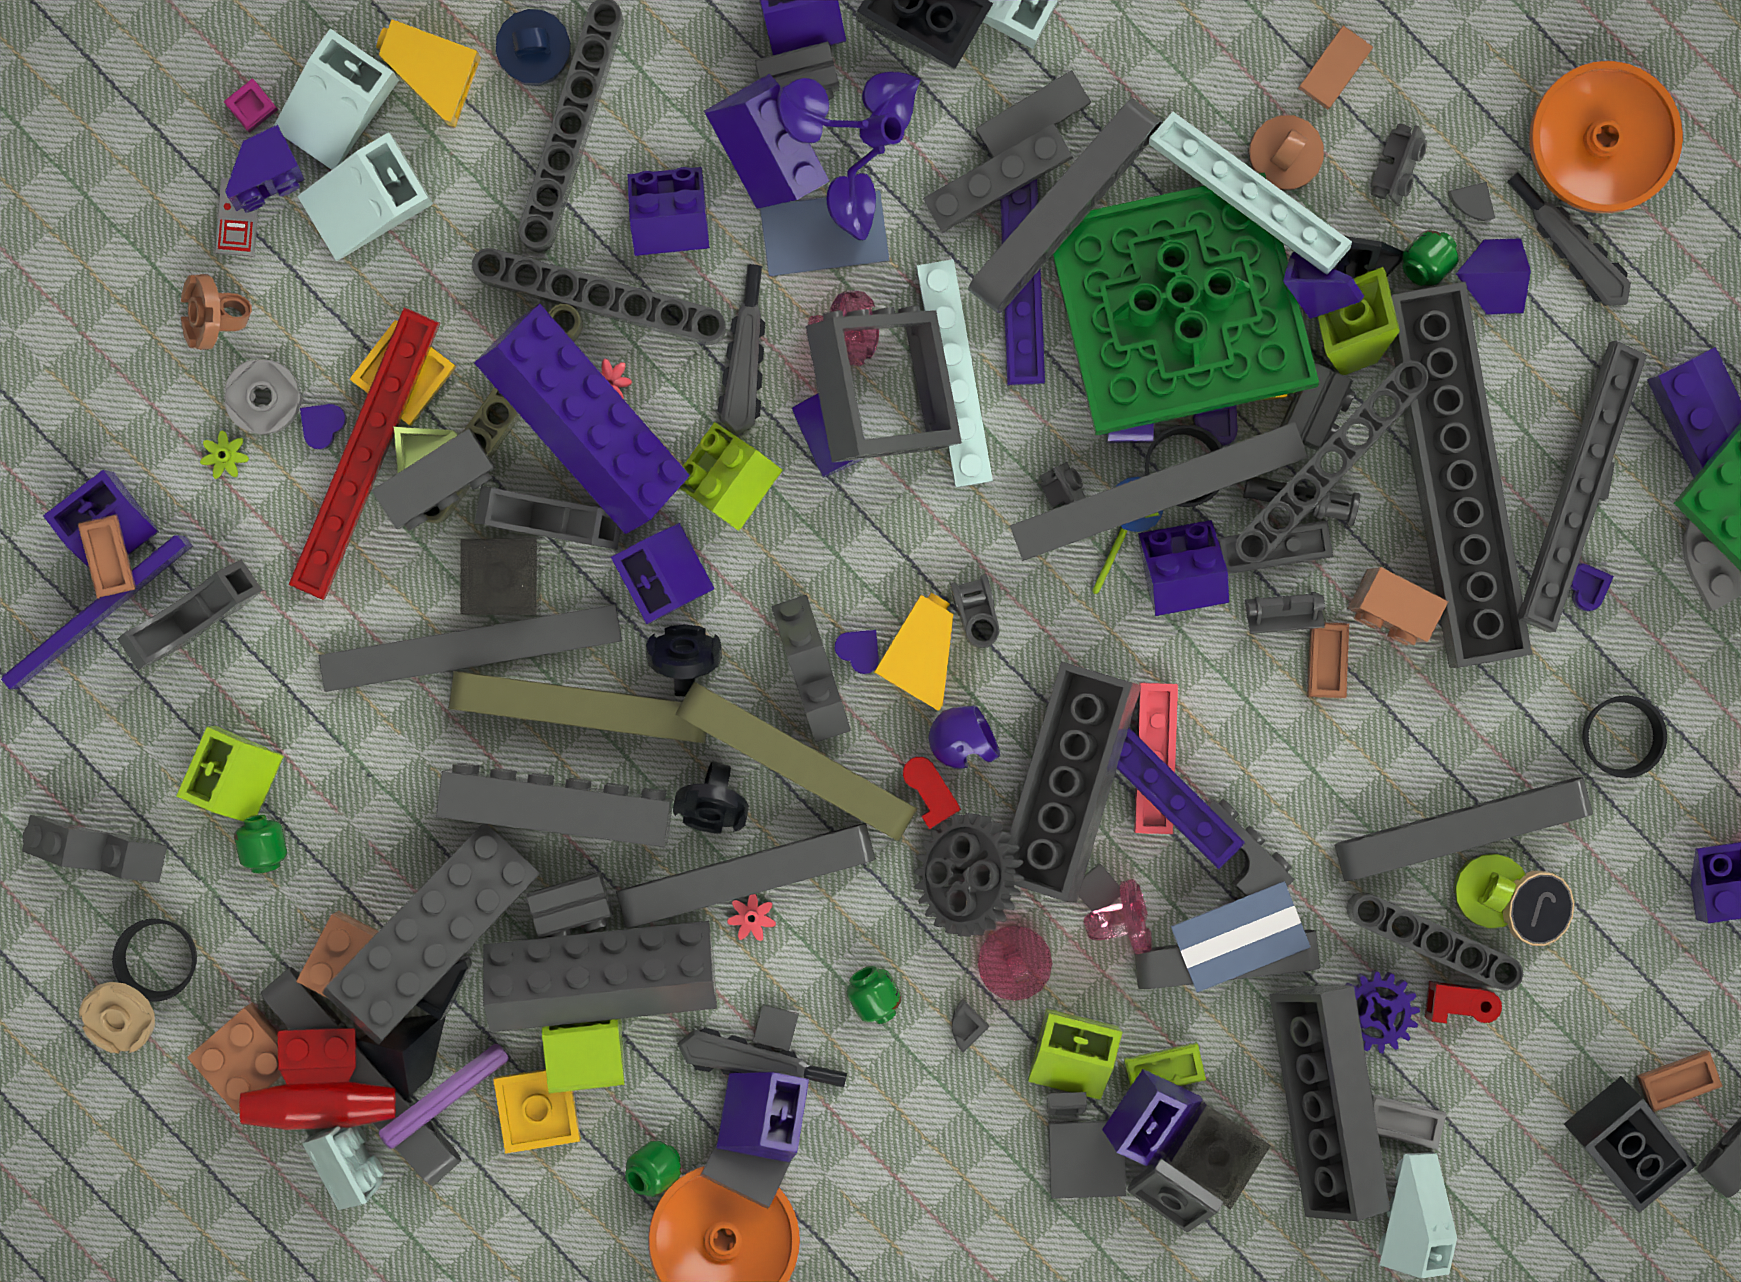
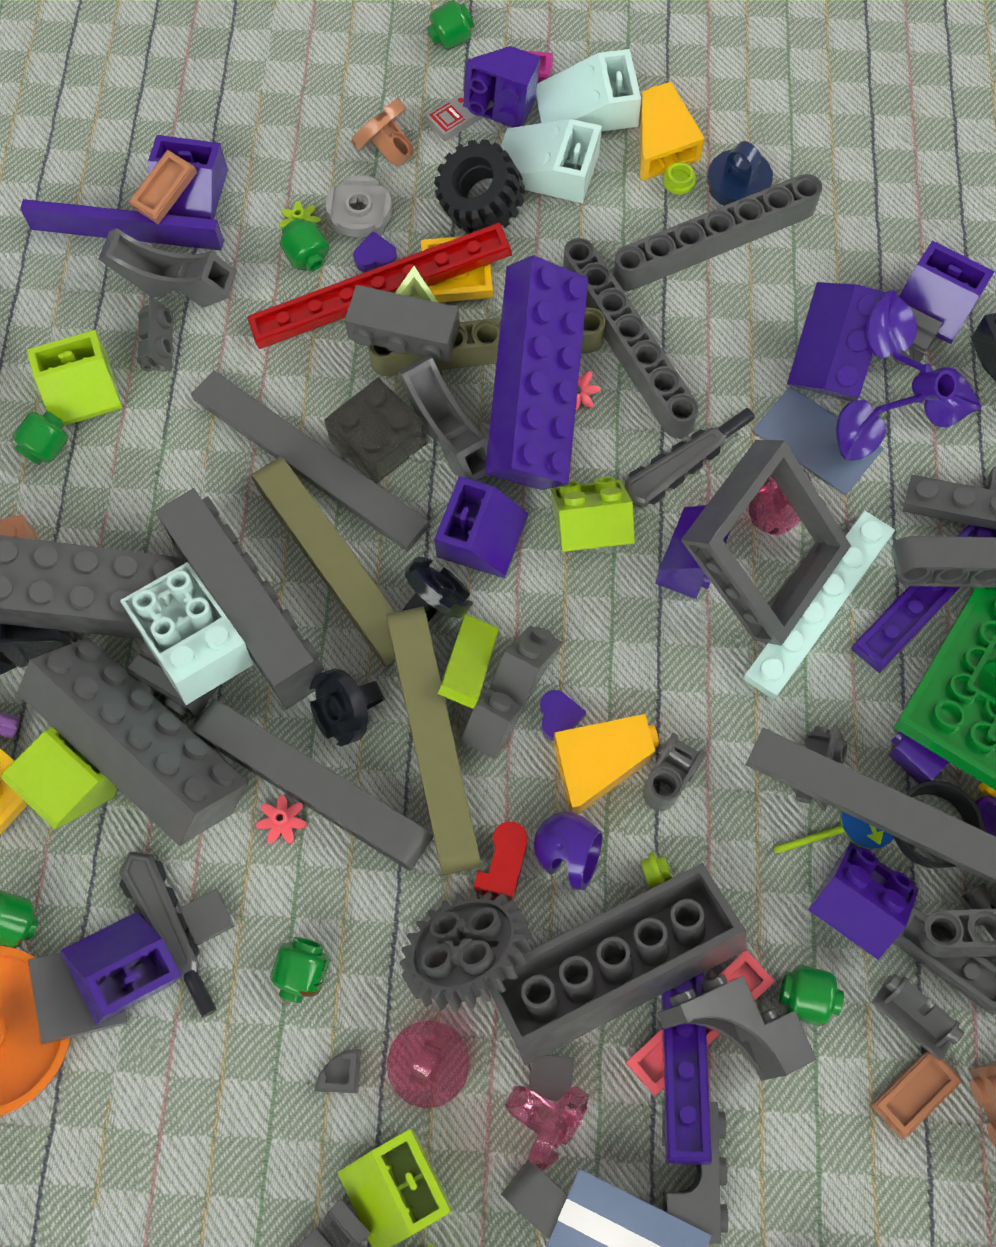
camera: 50 degrees right, 20 degrees down
(137, 142) = (450, 25): none -> green head
(226, 663) = (157, 325): none -> dark grey hinge
(263, 479) = (304, 245): none -> green head
(333, 312) = (467, 168): none -> black tyre
(487, 100) = (679, 178): none -> lime plate
(555, 872) = (187, 633): none -> light aqua slope
(668, 211) = (726, 328): dark purple slope -> none
(763, 683) = (468, 661): none -> lime tile
(1033, 691) = (656, 869): none -> lime plate
(1208, 670) = (811, 994): none -> green head
(1209, 726) = (769, 1040): none -> dark grey arch

